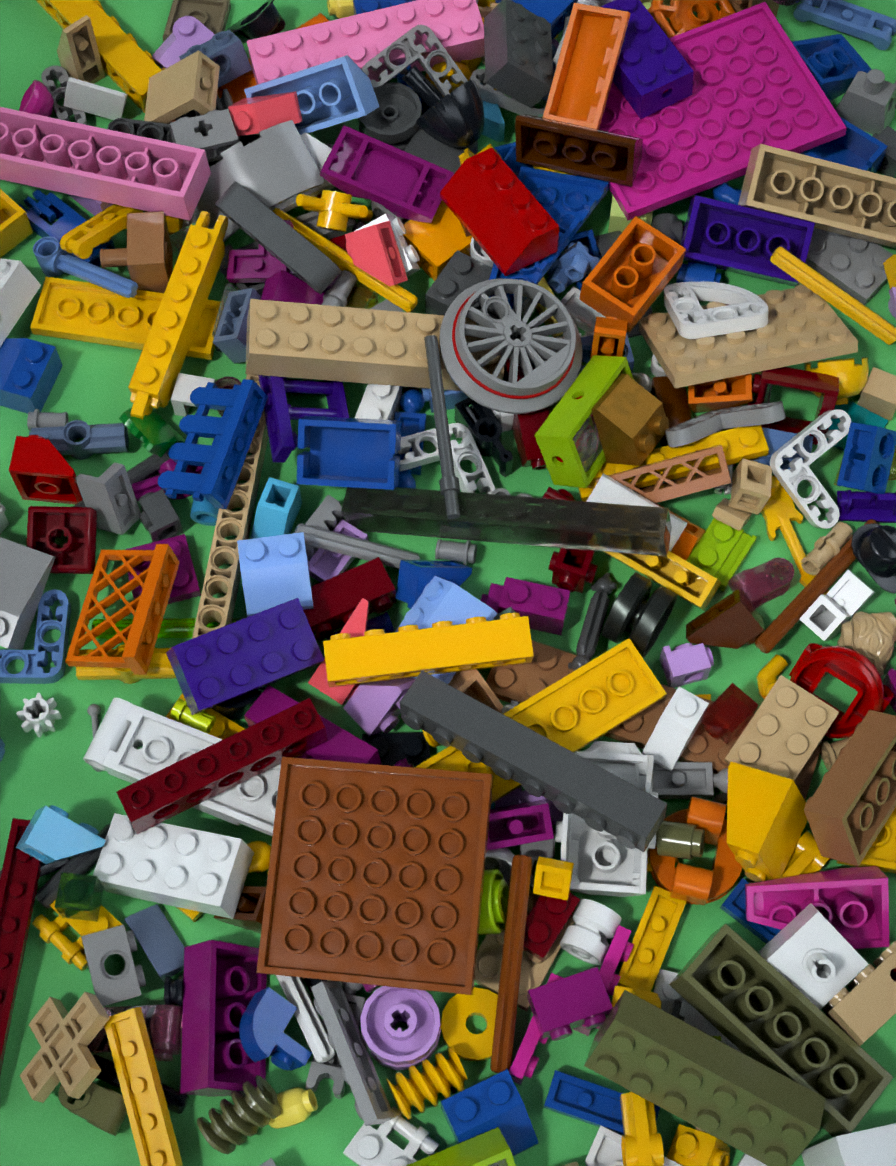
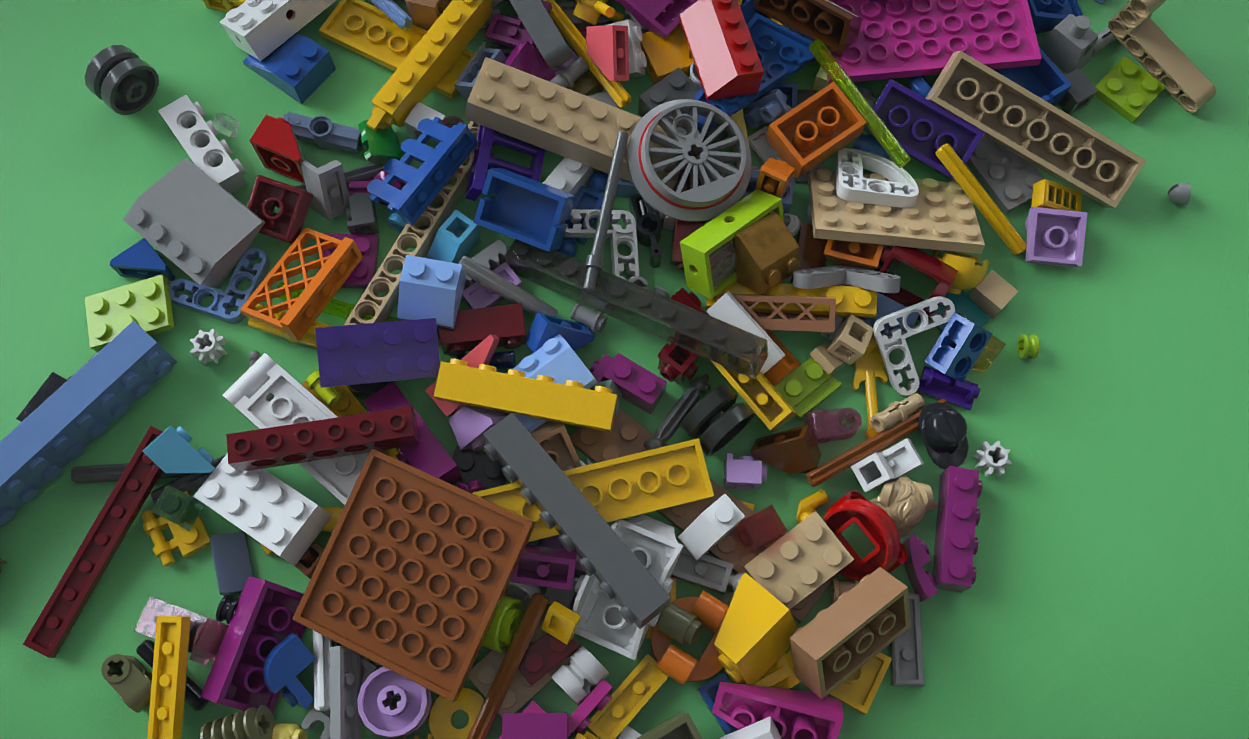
camera: 15 degrees right, 5 degrees up
(46, 419) = (302, 108): light grey pin -> none
(64, 1047) = (117, 636): tan plate -> none
(97, 948) = (176, 588): light grey brick -> none
(693, 246) = (849, 89): none -> clear neon green axle

